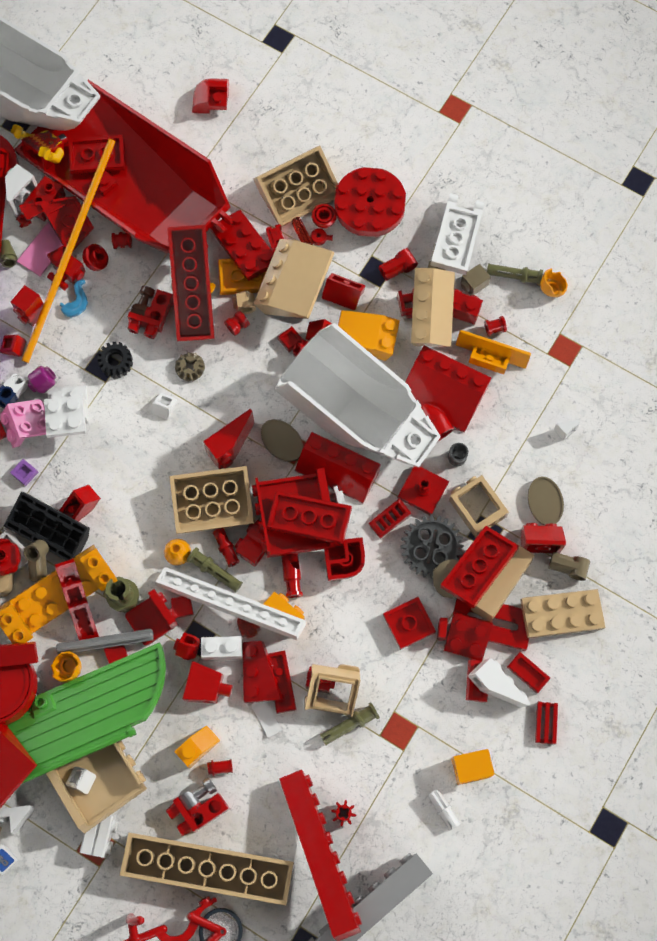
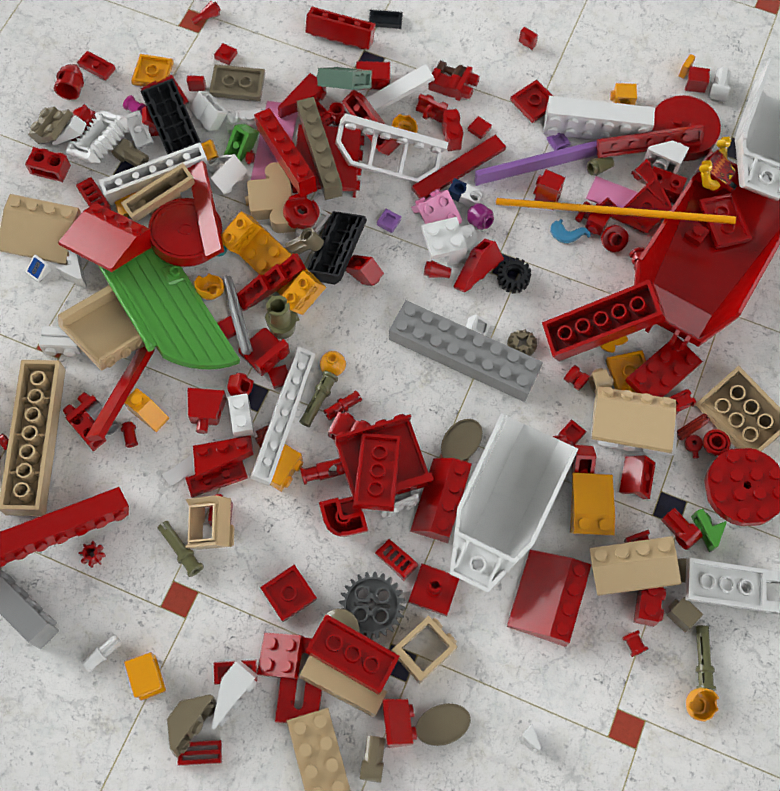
camera: 80 degrees right, 5 degrees down
(13, 345) = (510, 188): red slope -> none
(81, 780) = (107, 316): white slope -> none
(93, 433) = (436, 270): none -> red cone
(98, 391) = (479, 262): none -> red slope
(150, 317) = (565, 297): red hips -> none
(177, 770) = (119, 395): none -> red tile
(189, 420) = (465, 350): none -> light grey brick
(211, 499) = (385, 382): tan slope -> none
(228, 441) = (449, 389): red slope -> none
(407, 240) = (711, 534): none -> bright green slope
(438, 418) = (508, 589): red helmet -> none
(442, 629) = (285, 627): red tile -> none
(458, 450) = (478, 620): dark grey wheel -> none
(491, 353) = (599, 643): light orange bracket -> none
(519, 729) = (188, 721): none -> dark tan slope
(528, 672) = (251, 727): red tile -> none

